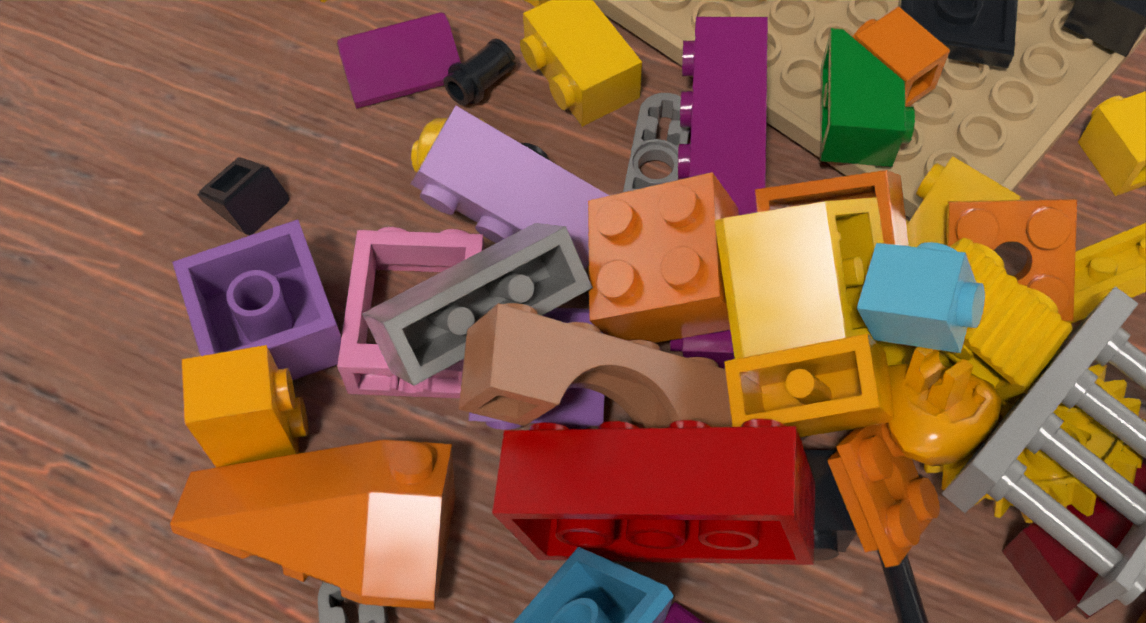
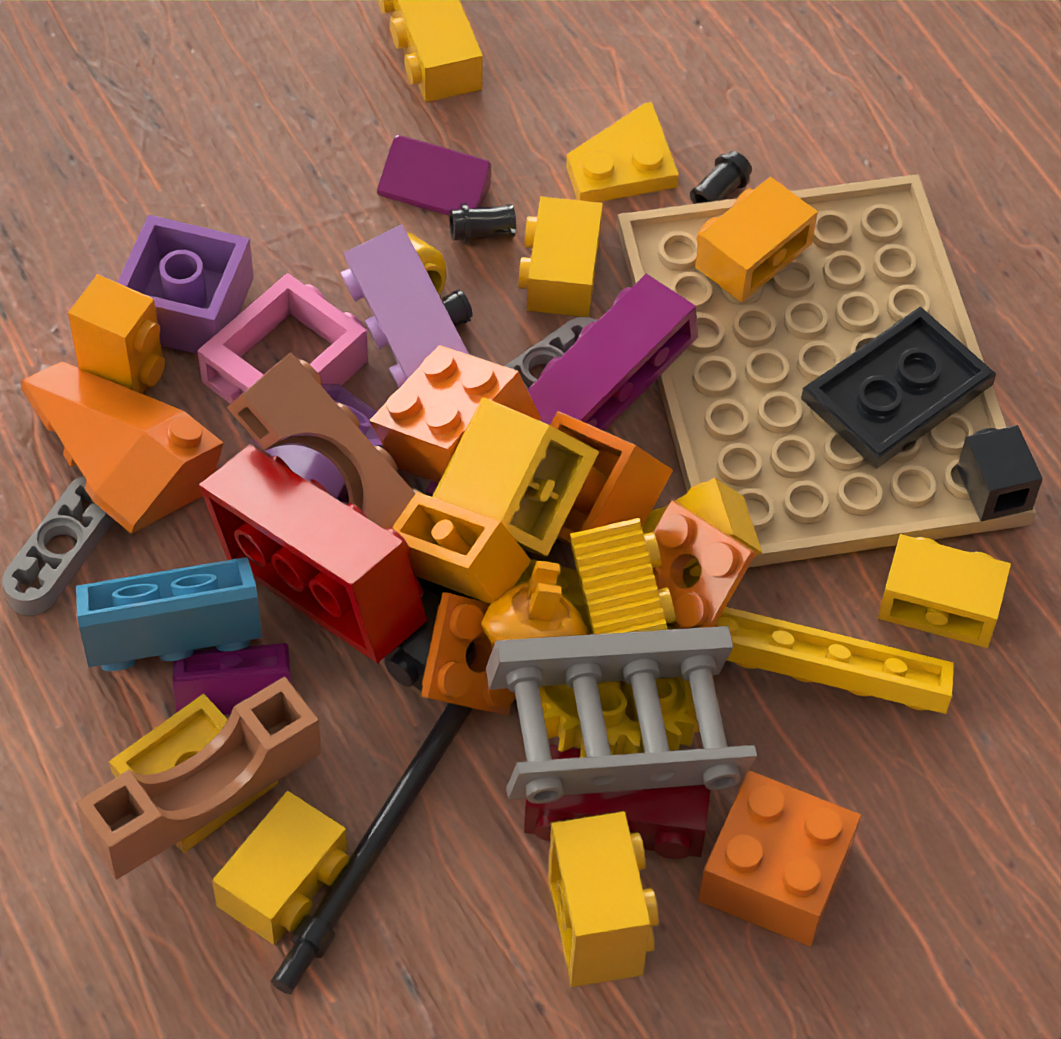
camera: 35 degrees right, 5 degrees down
(245, 195) = (247, 206): black slope -> none
(429, 323) = (344, 361): light grey brick -> none
(861, 106) = (711, 415): green slope -> none
(905, 50) = (777, 402): orange brick -> none
(921, 296) = (557, 522): medium azure brick -> none

